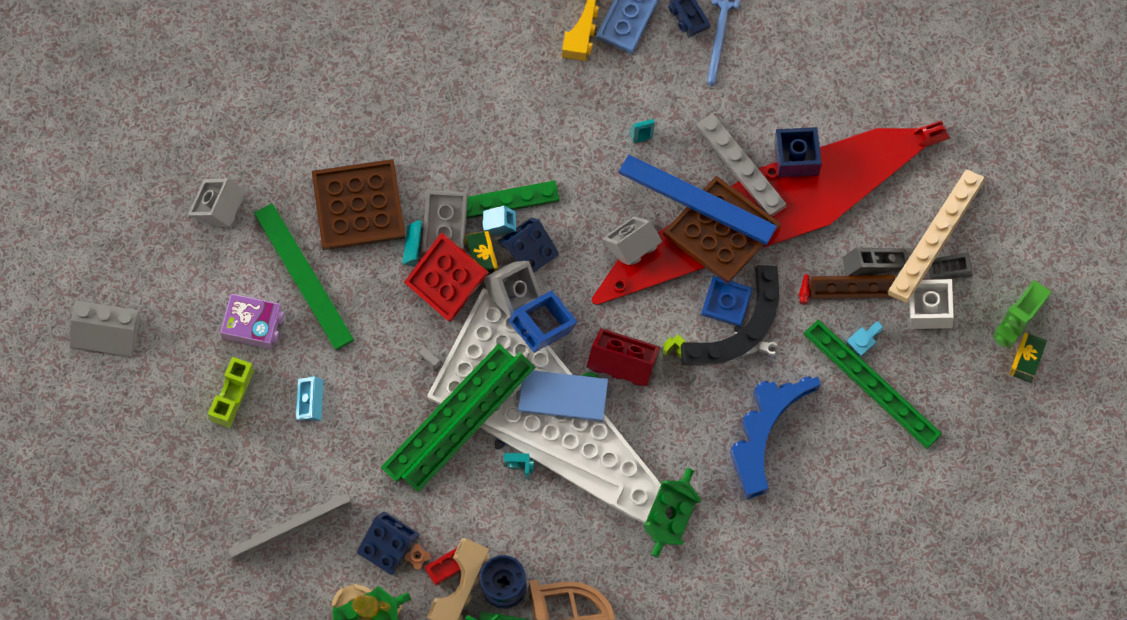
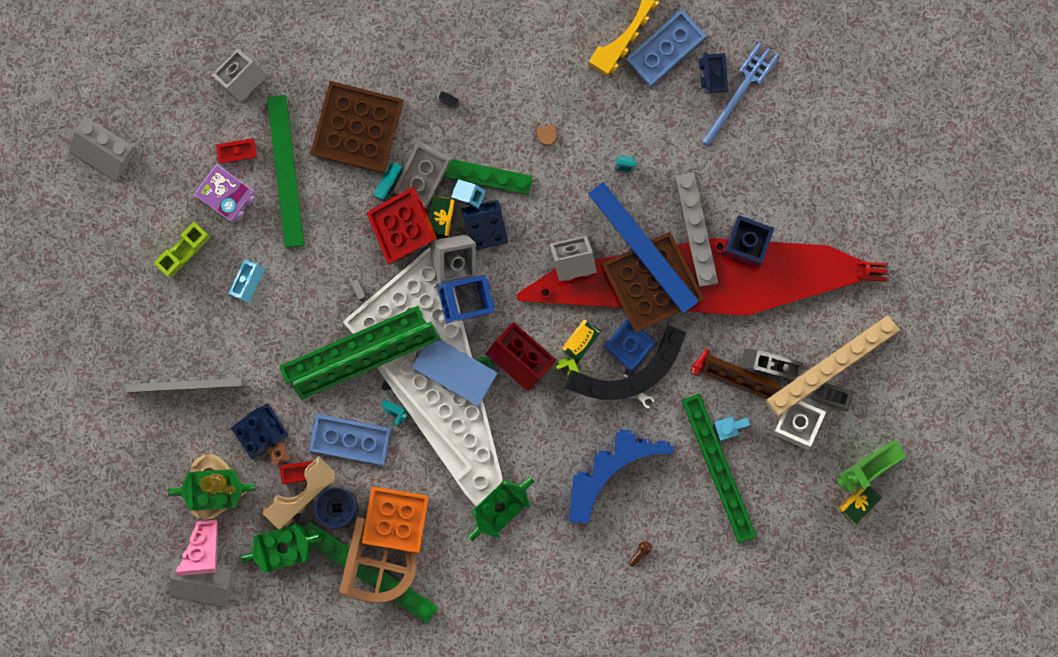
camera: 25 degrees right, 15 degrees up
(245, 276) = (236, 151): none -> red plate
(439, 141) = (448, 99): none -> black tile
(486, 512) = (350, 440): none -> medium blue tile
(551, 137) = (546, 134): none -> medium nougat tile
(569, 570) = (395, 520): none -> orange plate
(677, 315) = (581, 340): none -> piece
(835, 493) = (644, 548): none -> reddish brown piece

